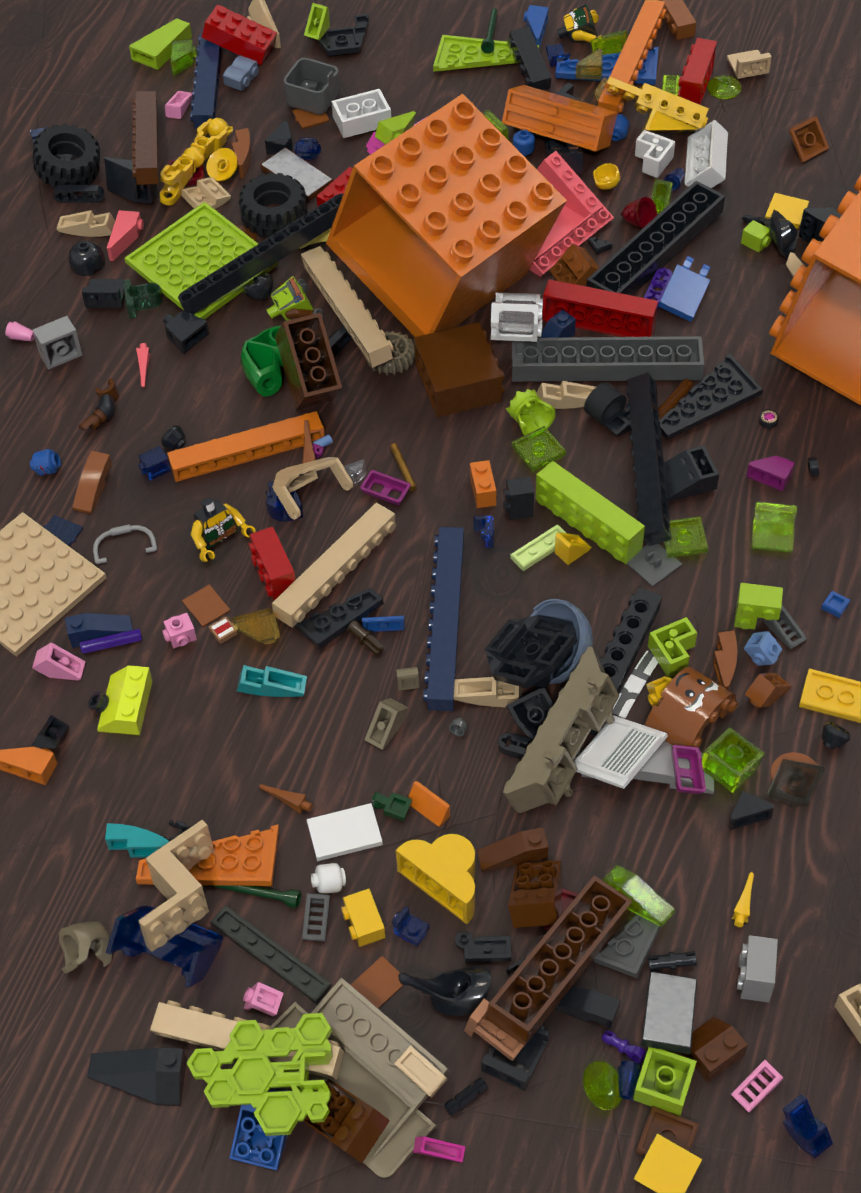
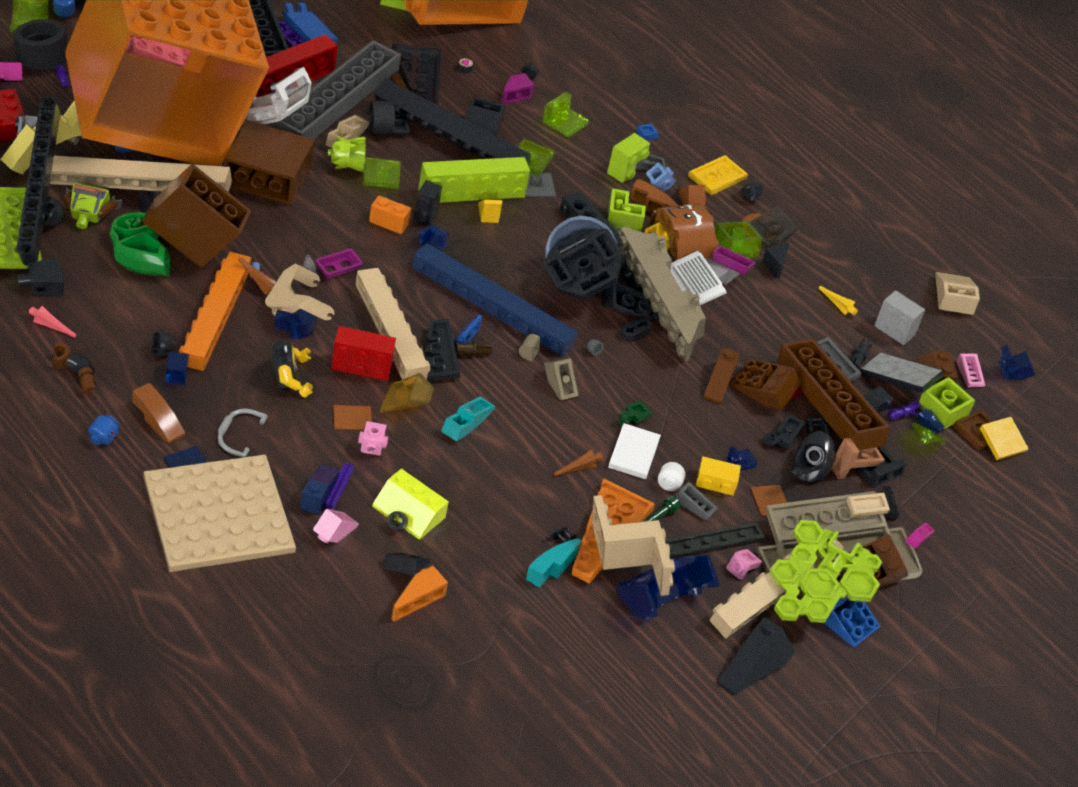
camera: 70 degrees left, 10 degrees down
(79, 938) = (628, 626): dark tan piece -> none
(223, 630) = (390, 418): tile -> none
(402, 465) = (320, 244): pearl gold bar -> none
(429, 804) = (650, 394): orange slope -> none
(442, 871) = (723, 413): yellow brick -> none
(486, 692) = (582, 313): tan slope -> none
(536, 549) = (472, 224): yellowish green tile -> none
(645, 899) = (821, 335): clear neon green slope -> none

